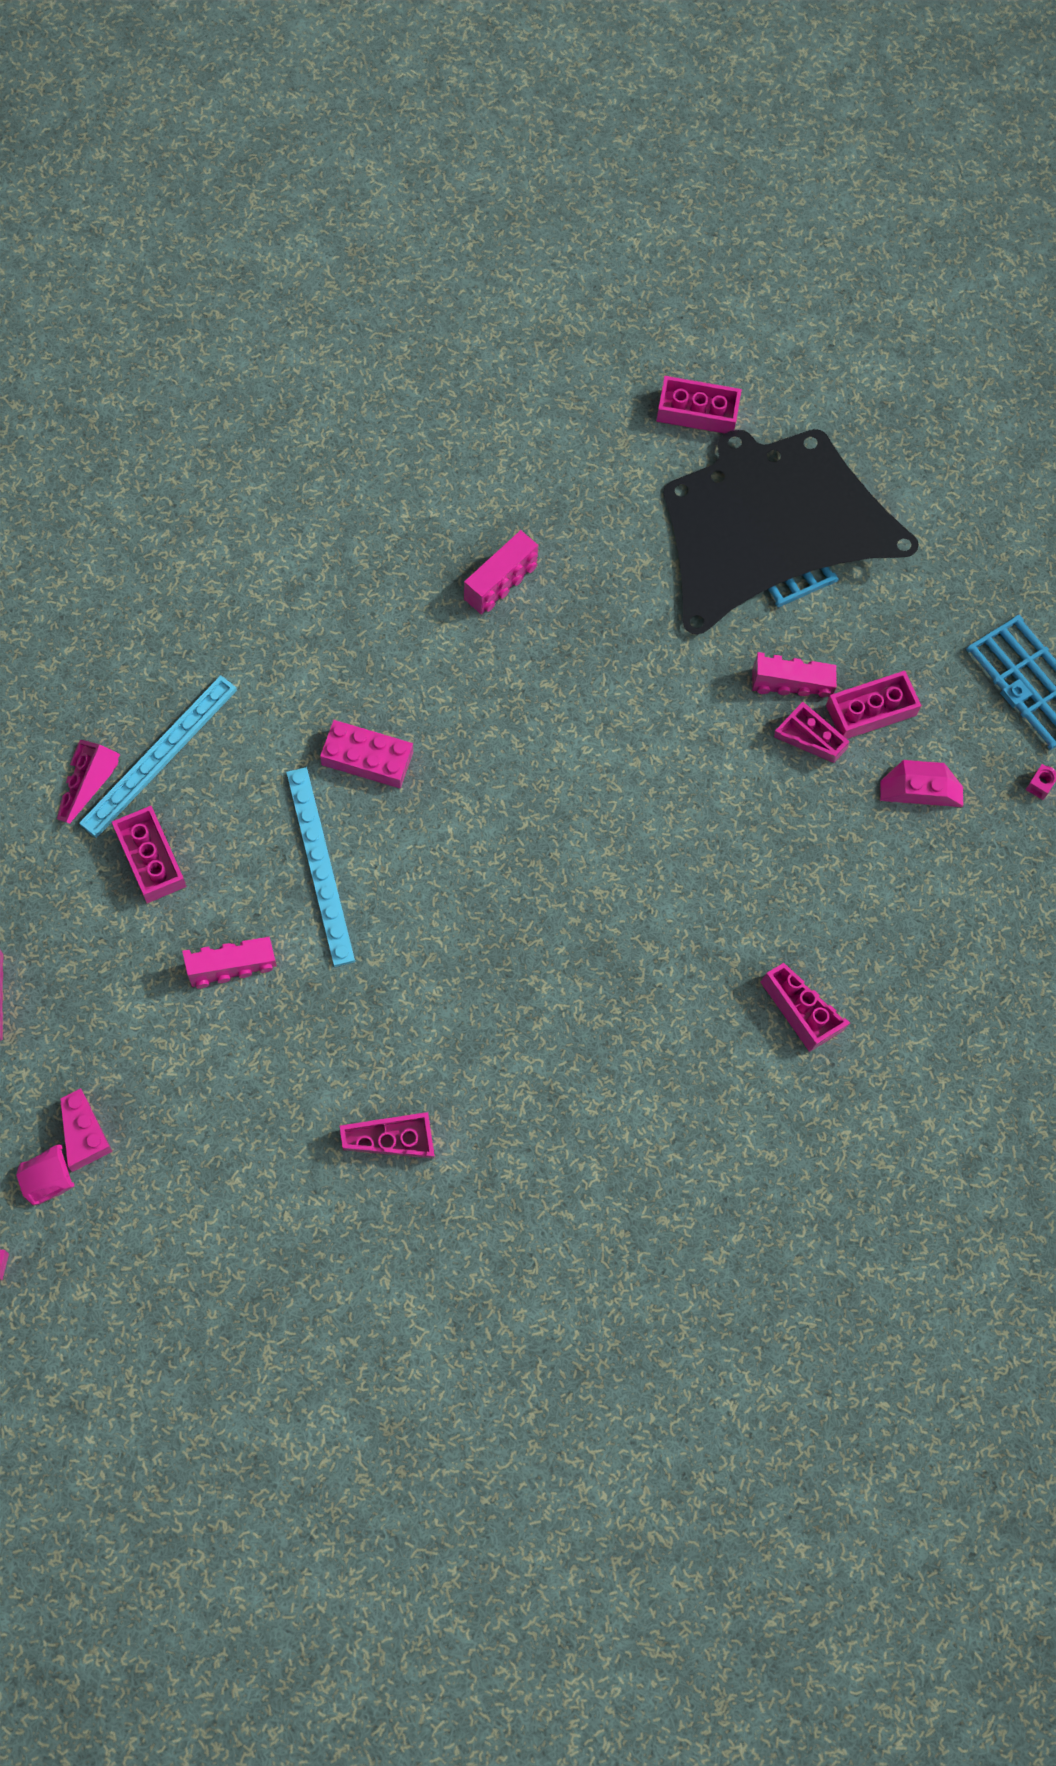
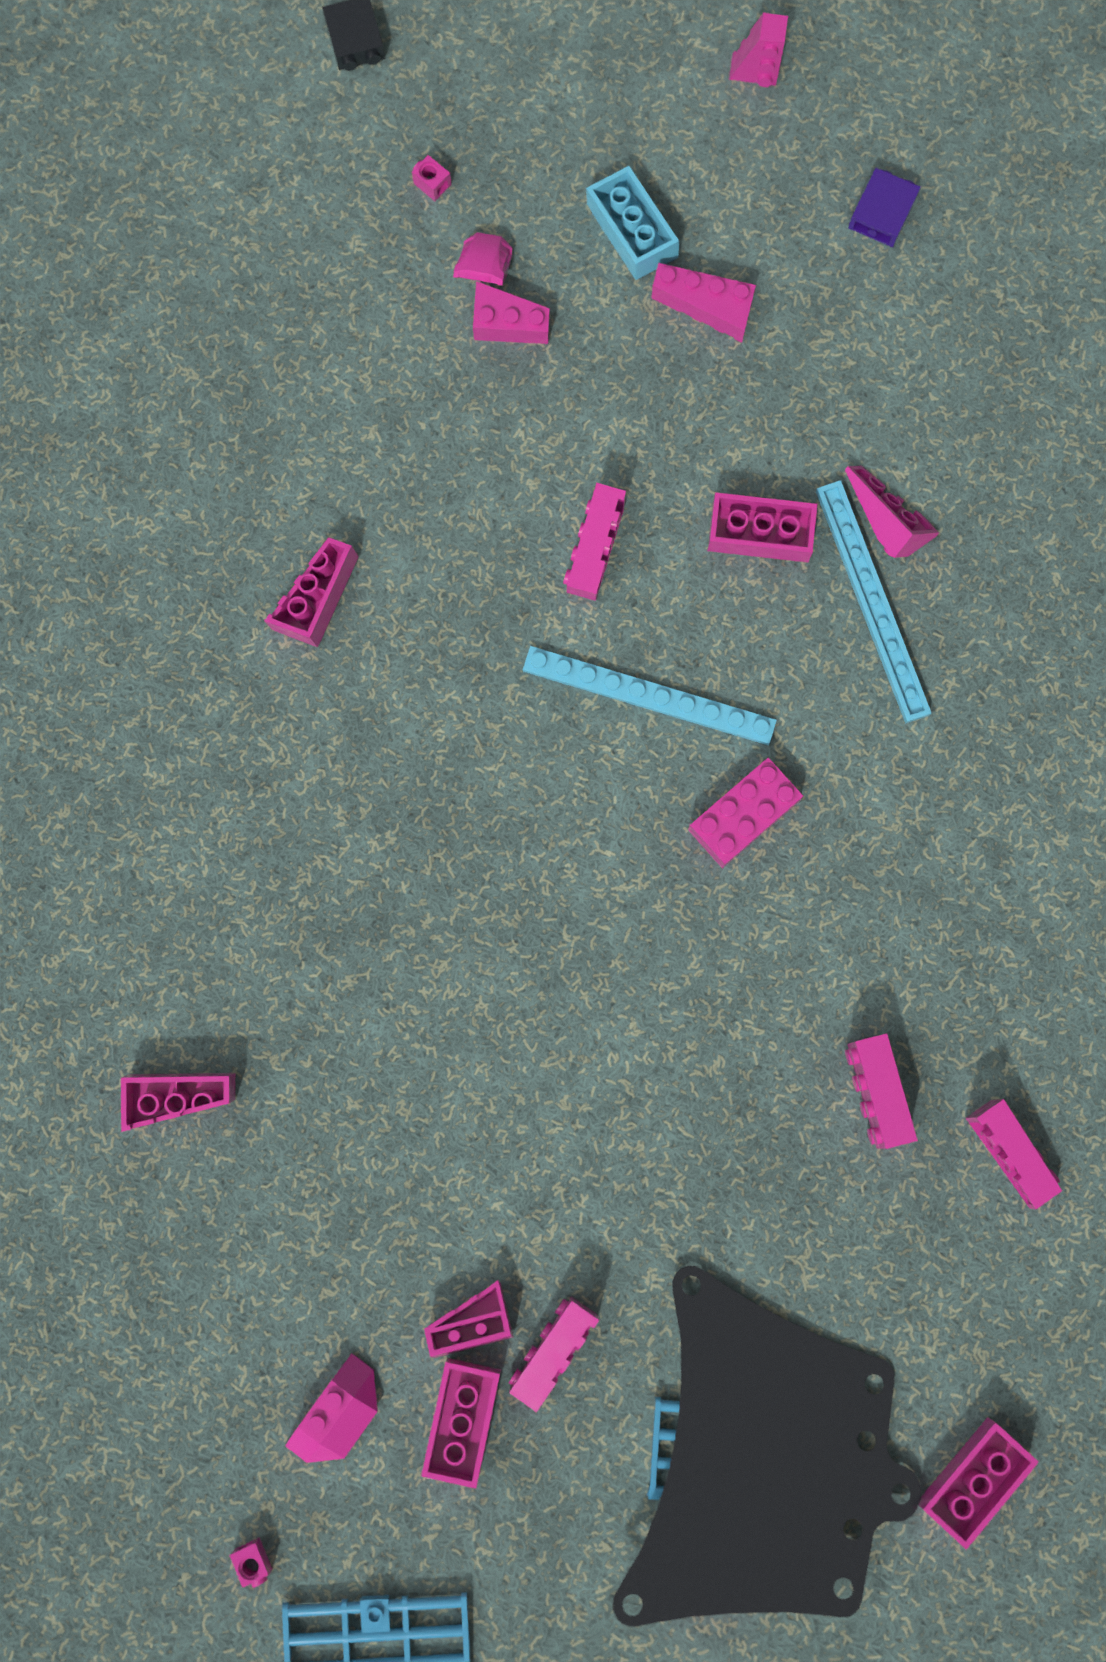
camera: 130 degrees right, 10 degrees up
(486, 481) = (1014, 1153): none -> dark pink wedge

